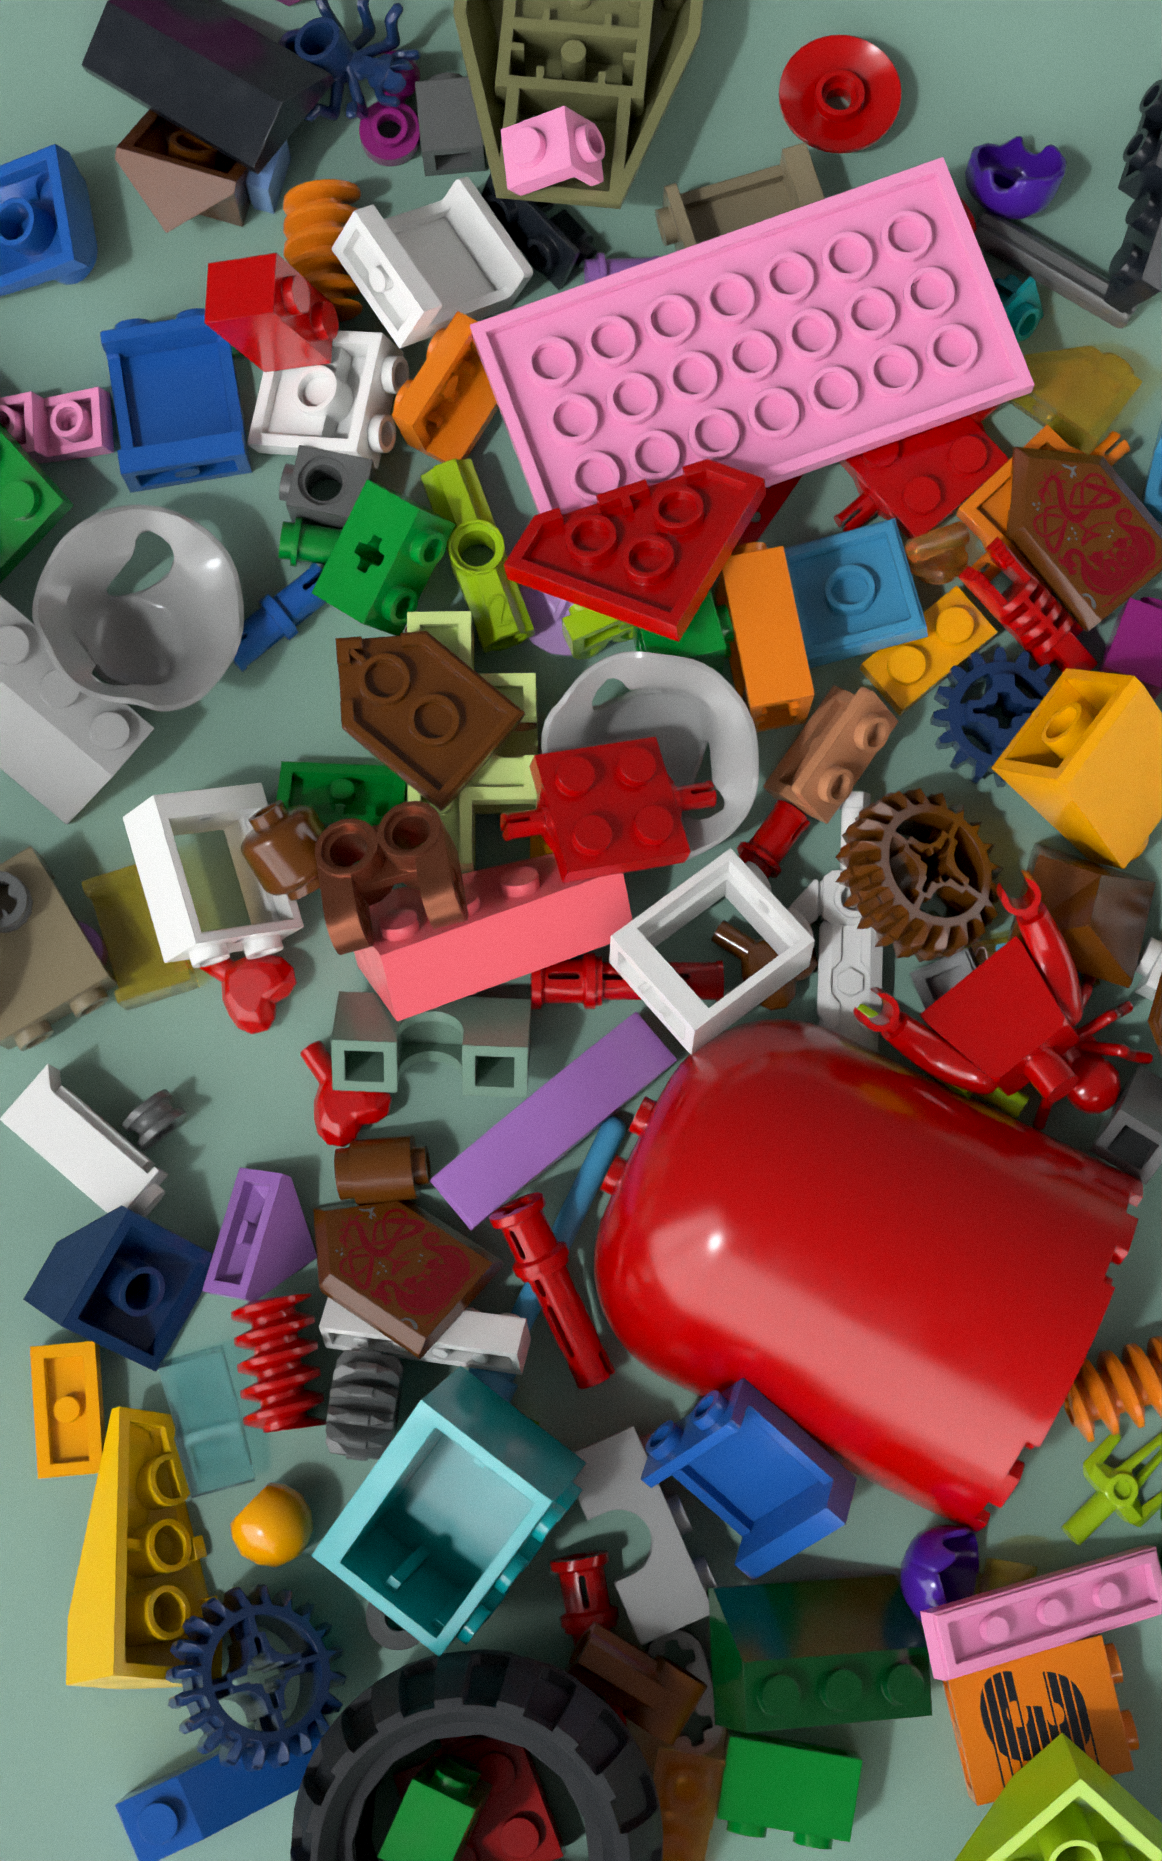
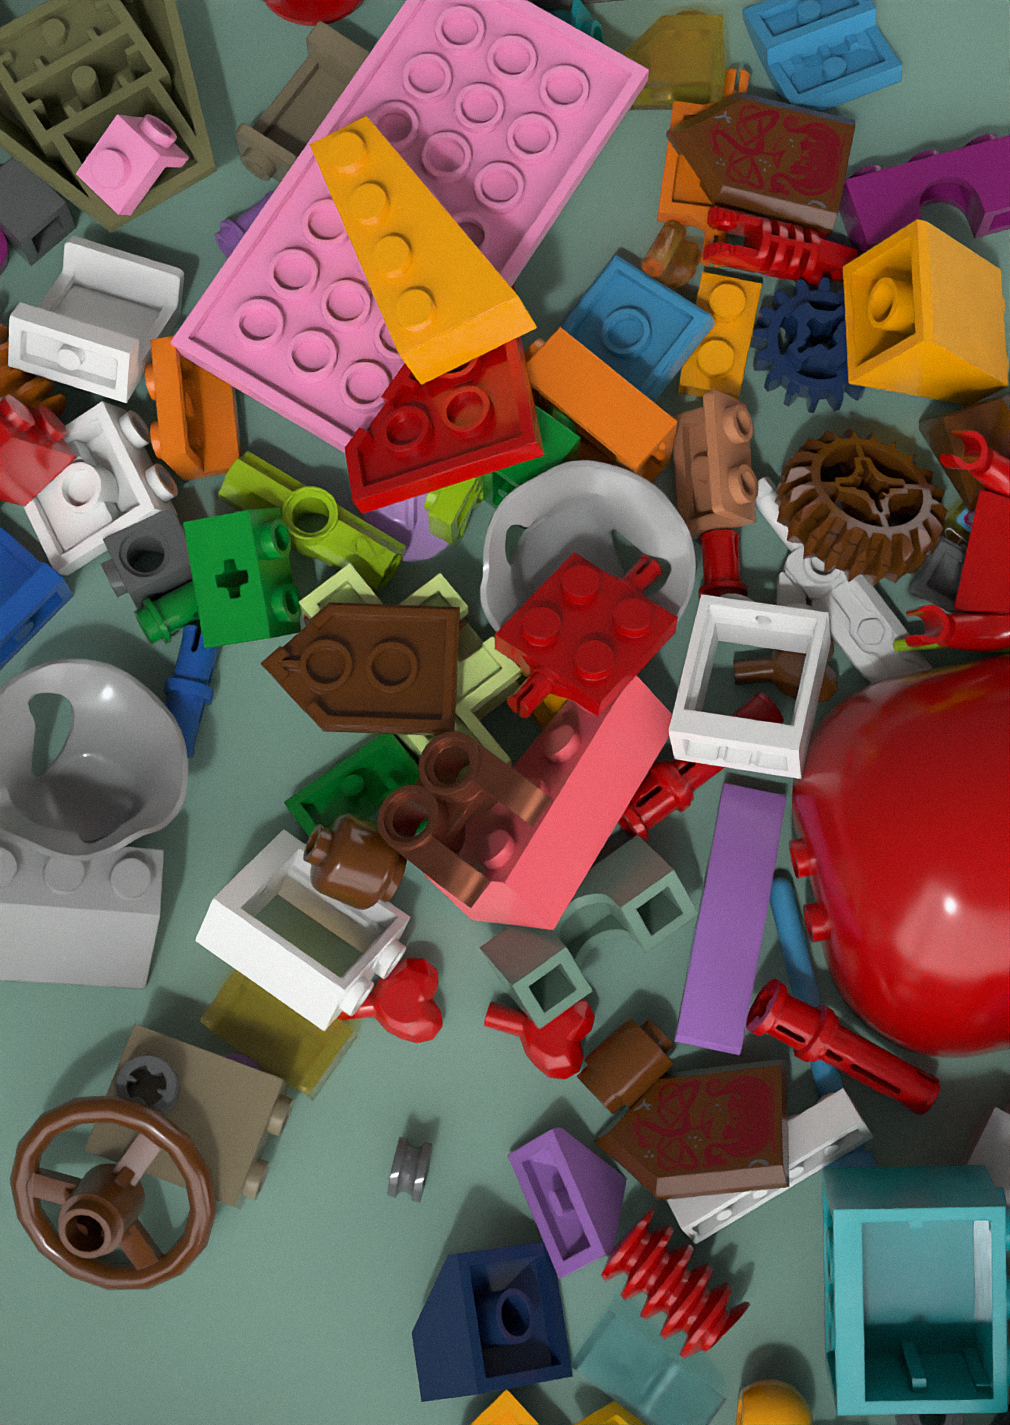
camera: 40 degrees left, 5 degrees down
(84, 1146) = (371, 1236): white window -> none
(364, 1404) = (769, 1262): dark grey gear -> none
(548, 243) = (175, 240): black hinge -> none
(702, 406) = (423, 269): none -> light orange wedge
(922, 475) = (609, 211): red plate -> none

